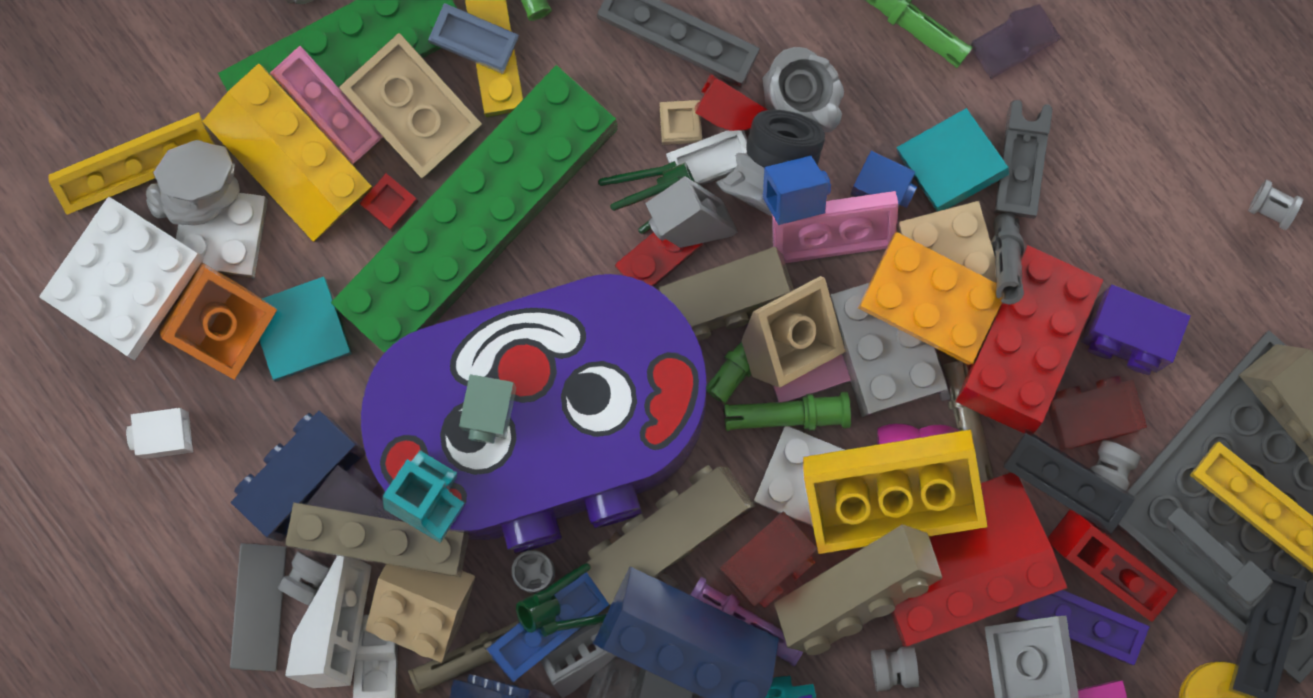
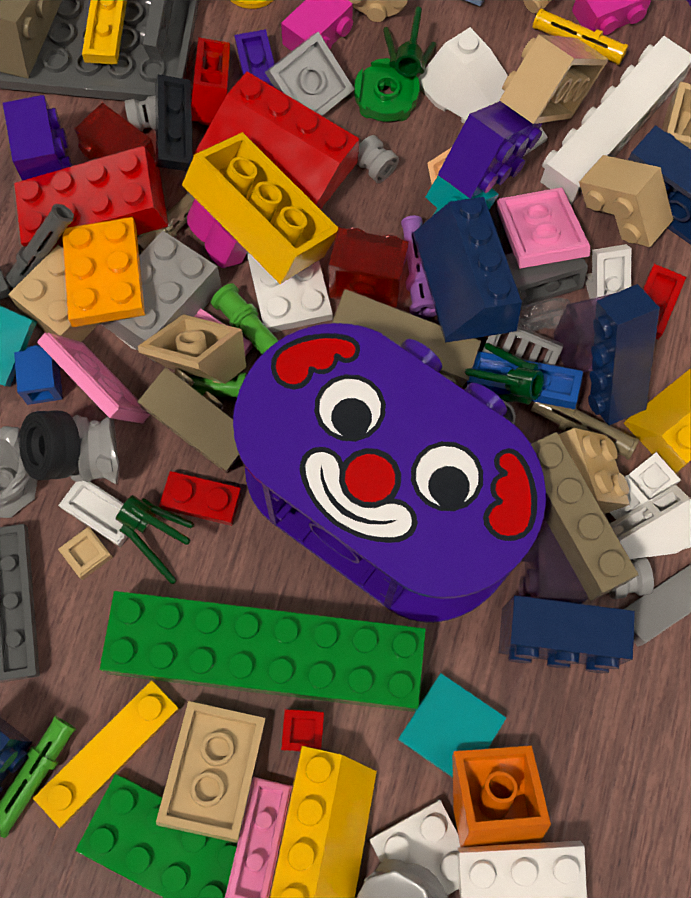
camera: 135 degrees left, 10 degrees down
(160, 433) = (616, 775): white brick -> none
(422, 496) = (527, 476): teal brick -> none
(473, 38) = (120, 760): sand blue tile -> none
(487, 408) = (422, 475): sand green brick -> none
(689, 215) = (156, 487): light grey slope -> none
(726, 106) = (48, 522): red brick -> none
(795, 190) = (82, 403): blue brick -> none
(858, 590) = (343, 188): dark tan brick -> none

